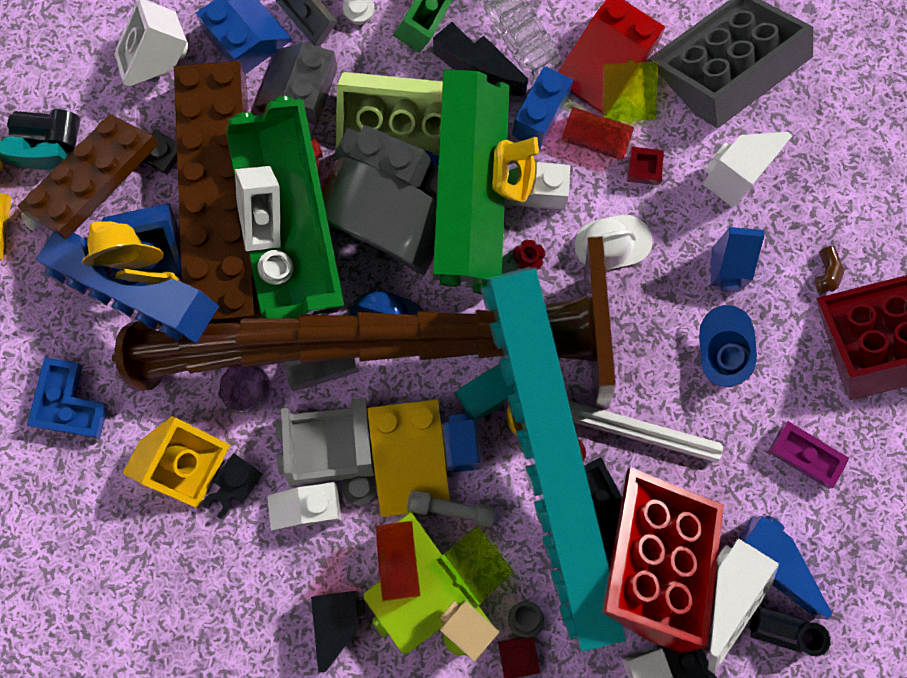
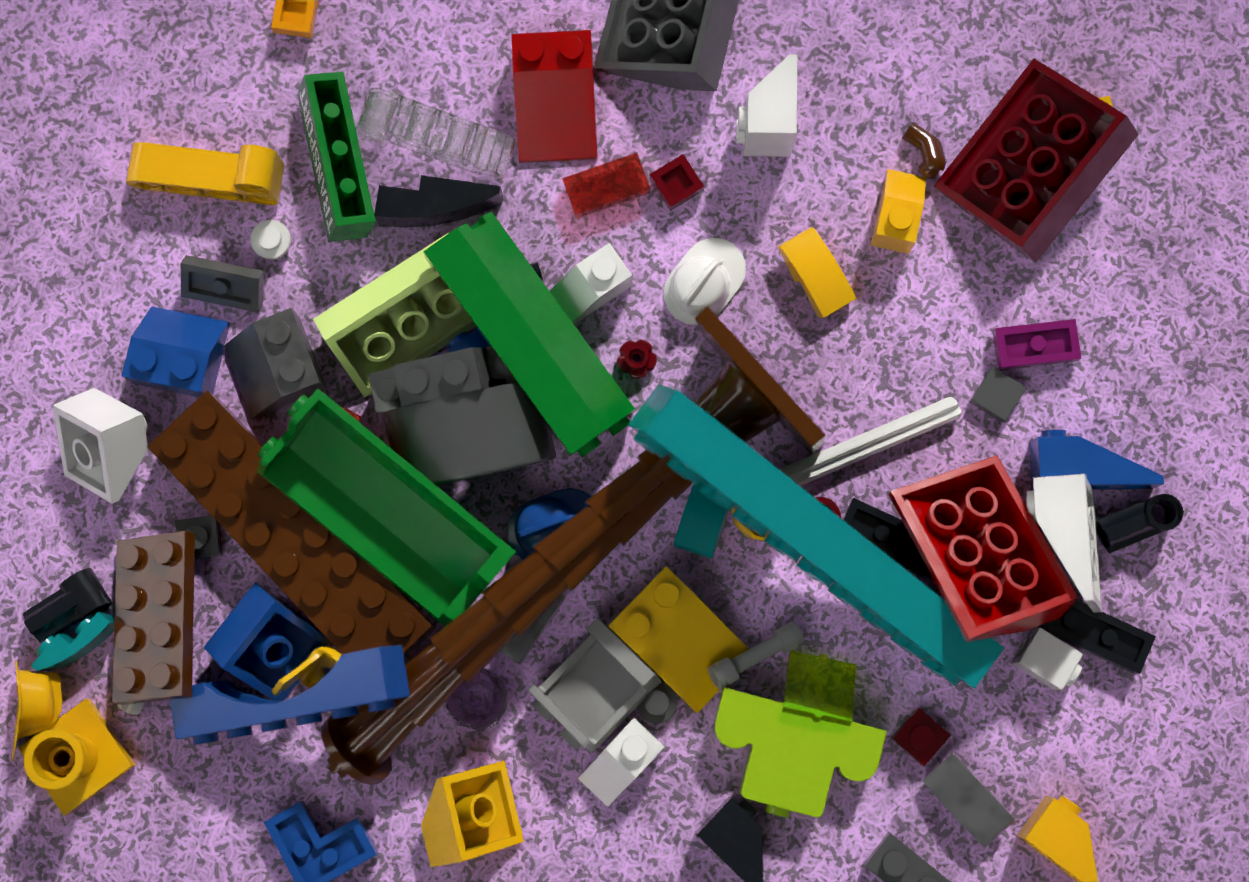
camera: 30 degrees left, 5 degrees up
(118, 247) = (251, 664): yellow piece -> none
(235, 481) = (537, 789): black plate -> none
(258, 207) = (355, 521): white slope -> none
(275, 267) = (415, 565): white plate -> none
(397, 561) = (750, 740): clear red slope -> none
(462, 444) = (720, 588): blue brick -> none
(467, 629) = (859, 749): tan brick -> none
(522, 155) = (550, 277): yellow piece -> none
(526, 619) = (901, 698): dark grey plate -> none
(542, 106) = (534, 202): blue brick -> none
(630, 91) = (605, 119): clear neon green piece -> none
(694, 291) = (817, 271): none -> yellow slope
(727, 346) = (888, 302): blue piece -> none
(735, 258) = (833, 211): blue slope -> none
(754, 467) = (998, 394): none -> dark grey tile
(779, 296) = (899, 211): none -> yellow slope

